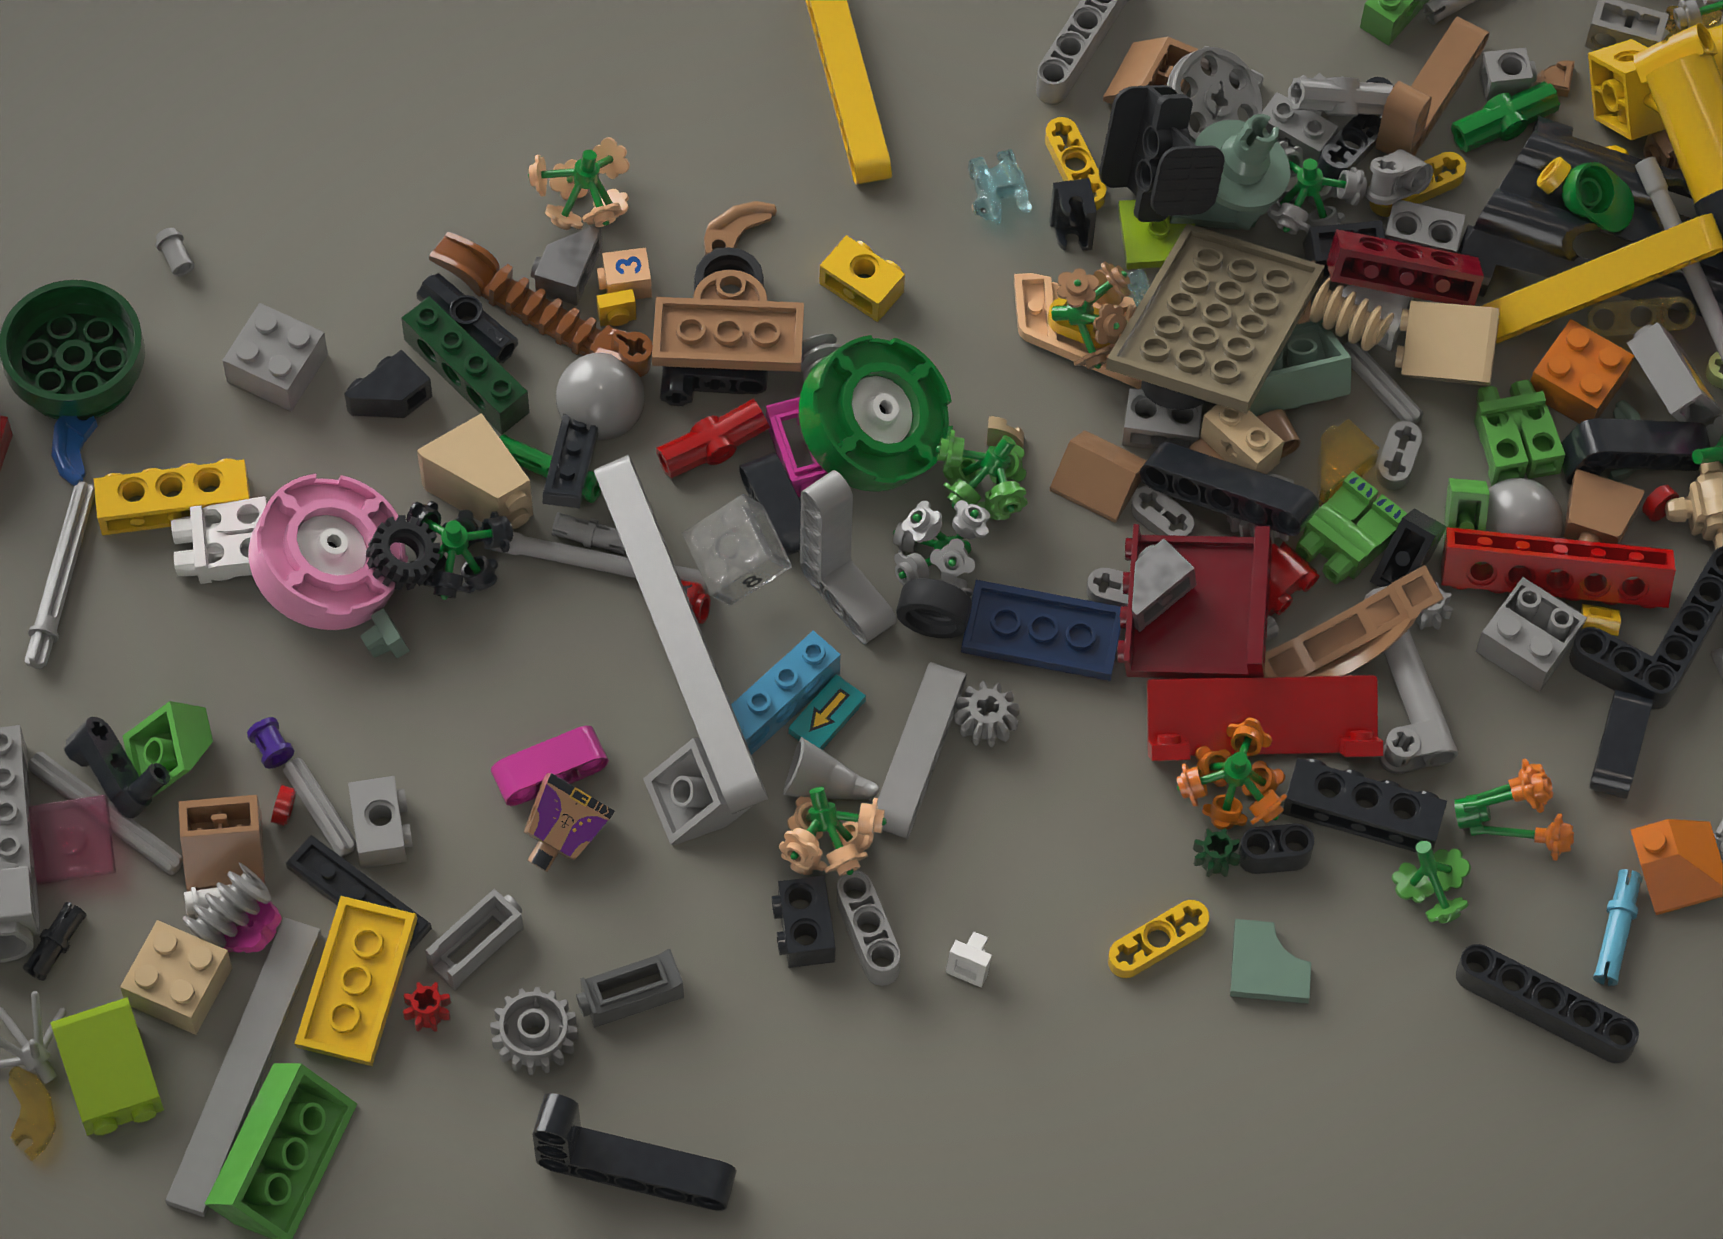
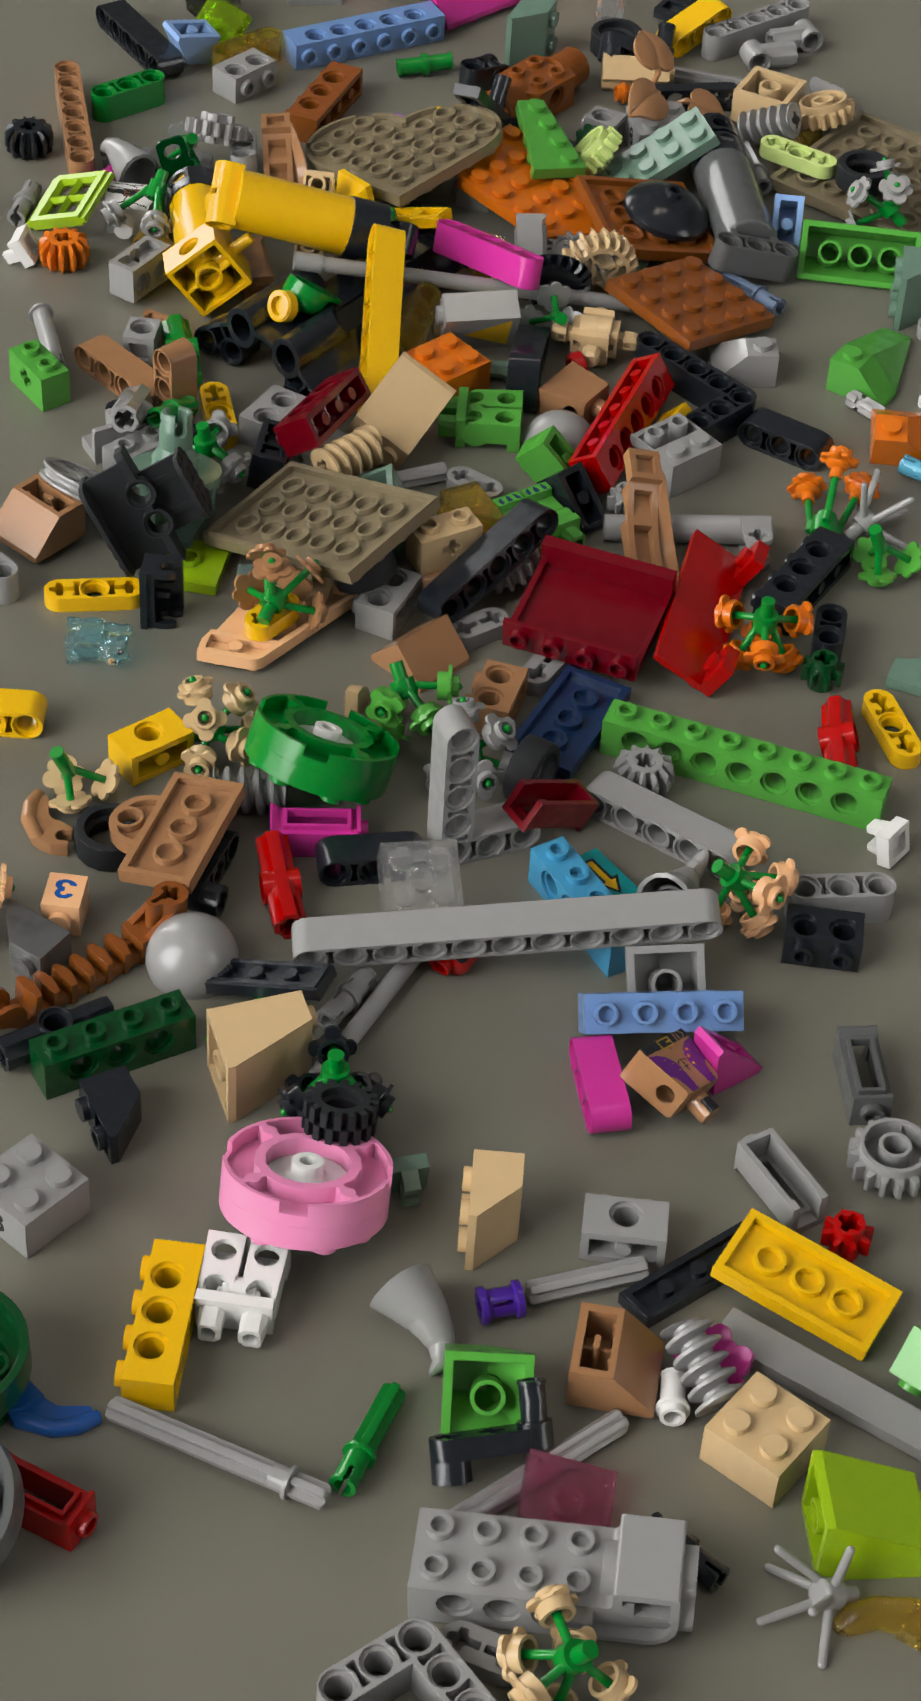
camera: 75 degrees left, 20 degrees down
(103, 679) = (362, 1449): none -> green axle
(240, 683) = (418, 1305): none -> light grey hat
(283, 805) = (570, 1302): red tile -> none
(353, 703) = (491, 1206): none -> tan slope
(613, 863) = (726, 1057): none -> dark pink slope
(616, 308) = (100, 918): yellow plate -> none
(645, 793) = (660, 1011): none -> medium blue brick
(795, 221) = (66, 777): none -> tan plant
(902, 319) = (210, 723): none -> tan plant
(919, 652) = (550, 804): none -> dark red window
(1031, 805) = (750, 765): none -> bright green brick
(1049, 565) = (501, 689): none -> medium nougat brick
(1107, 887) = (838, 732): none -> red piece
(1159, 582) = (566, 613): flat silver slope -> none
(1355, 135) = (187, 401): none -> green pin
(1397, 177) = (222, 397): light grey piece -> none
(1499, 855) = (865, 517): none -> light grey plant

